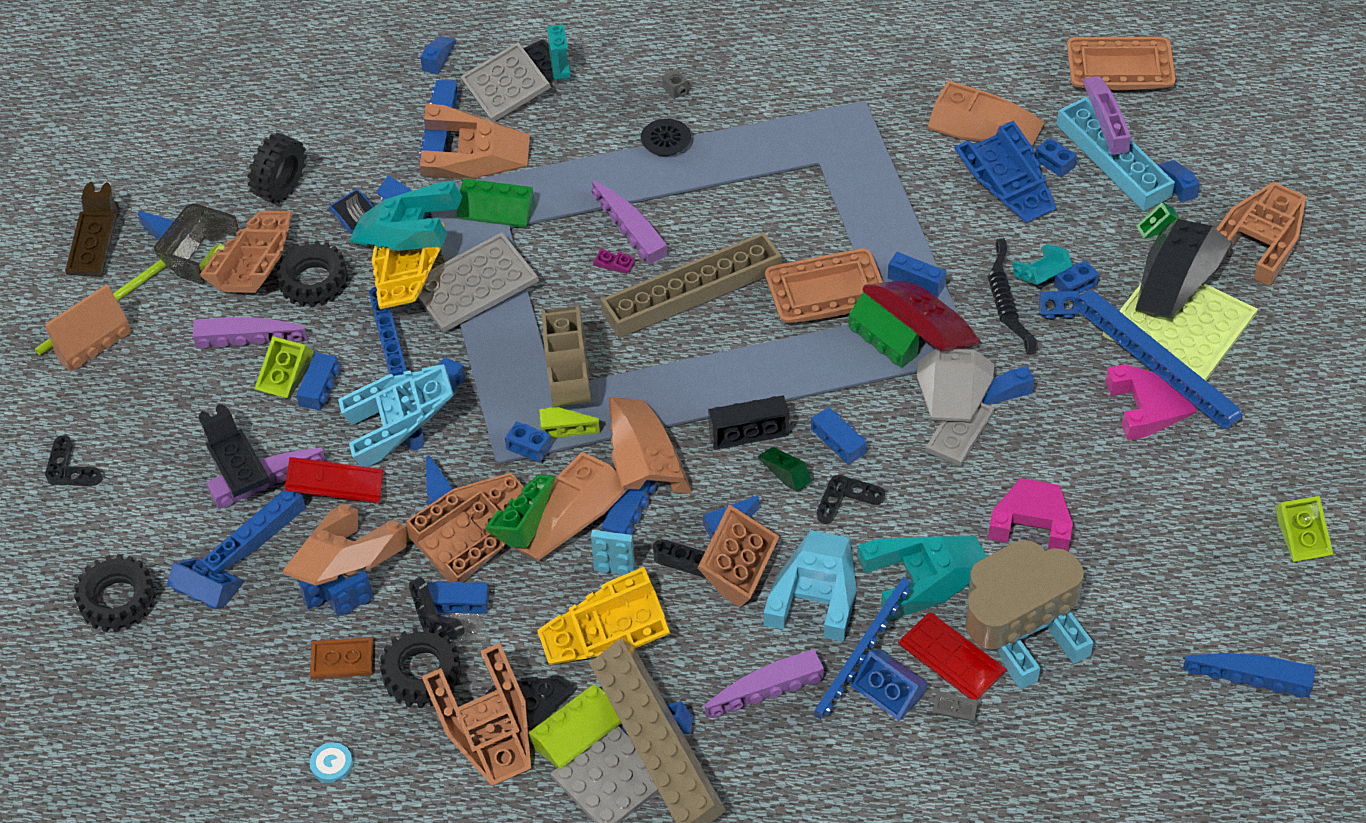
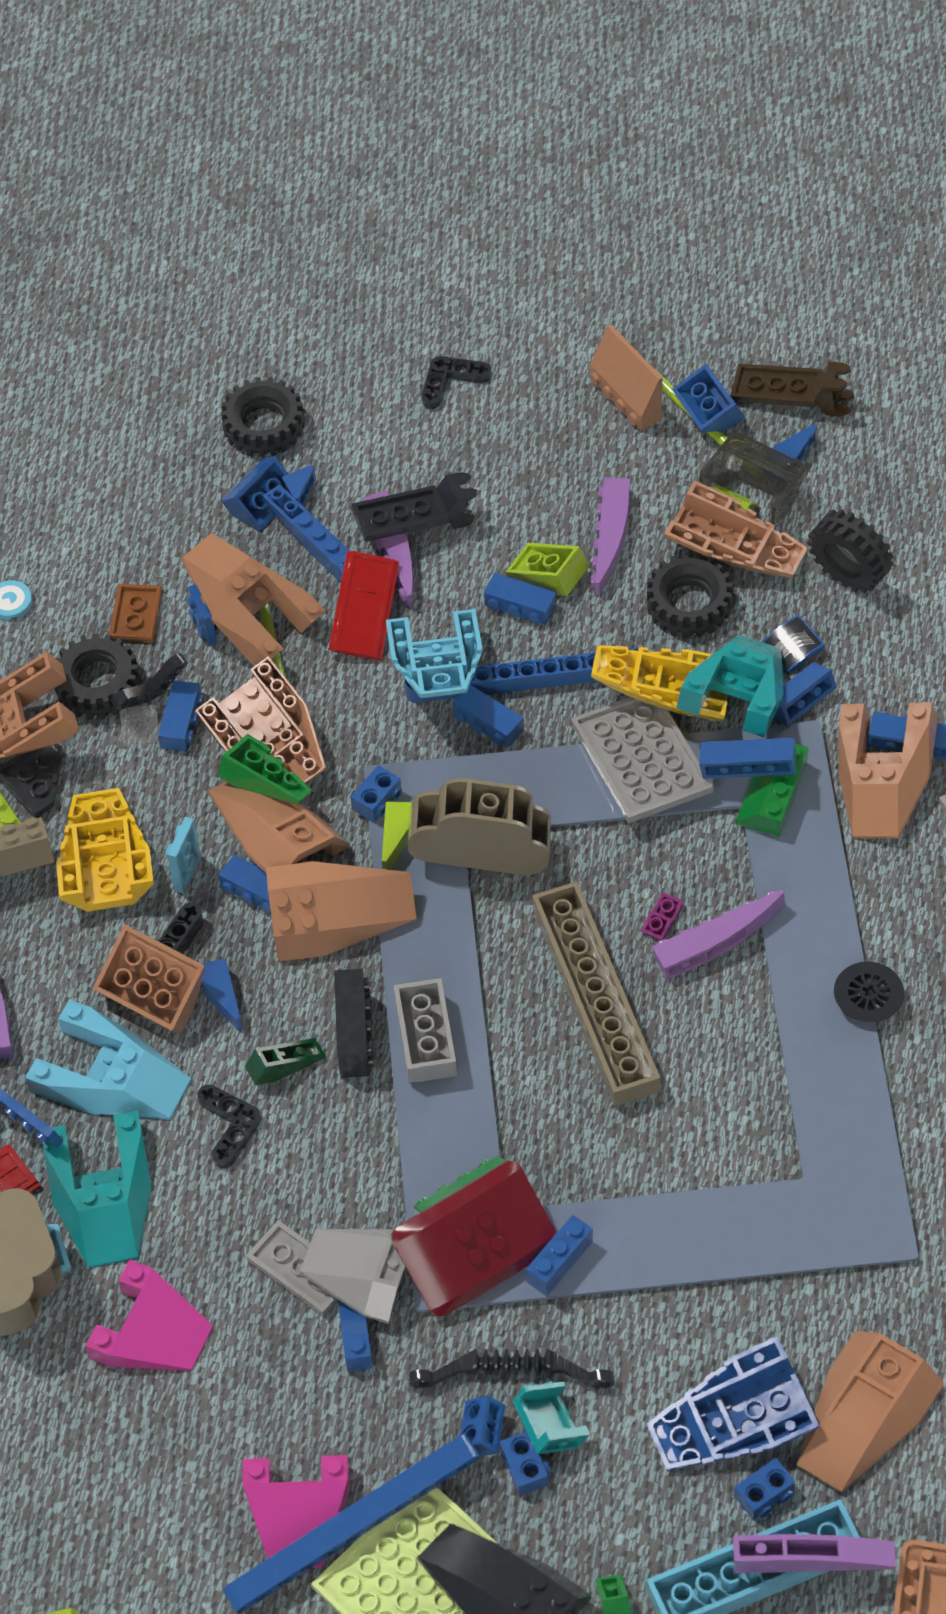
camera: 100 degrees right, 5 degrees up
(115, 272) = (708, 401): none -> blue slope
(195, 550) = (300, 483): none -> blue slope
(436, 482) = (336, 705): blue slope -> none
(481, 205) = (748, 758): none -> blue brick
(748, 374) = (425, 1030): none -> light grey brick
(821, 284) = (565, 1142): nougat wedge -> none
(838, 435) = (319, 1126): blue brick -> none

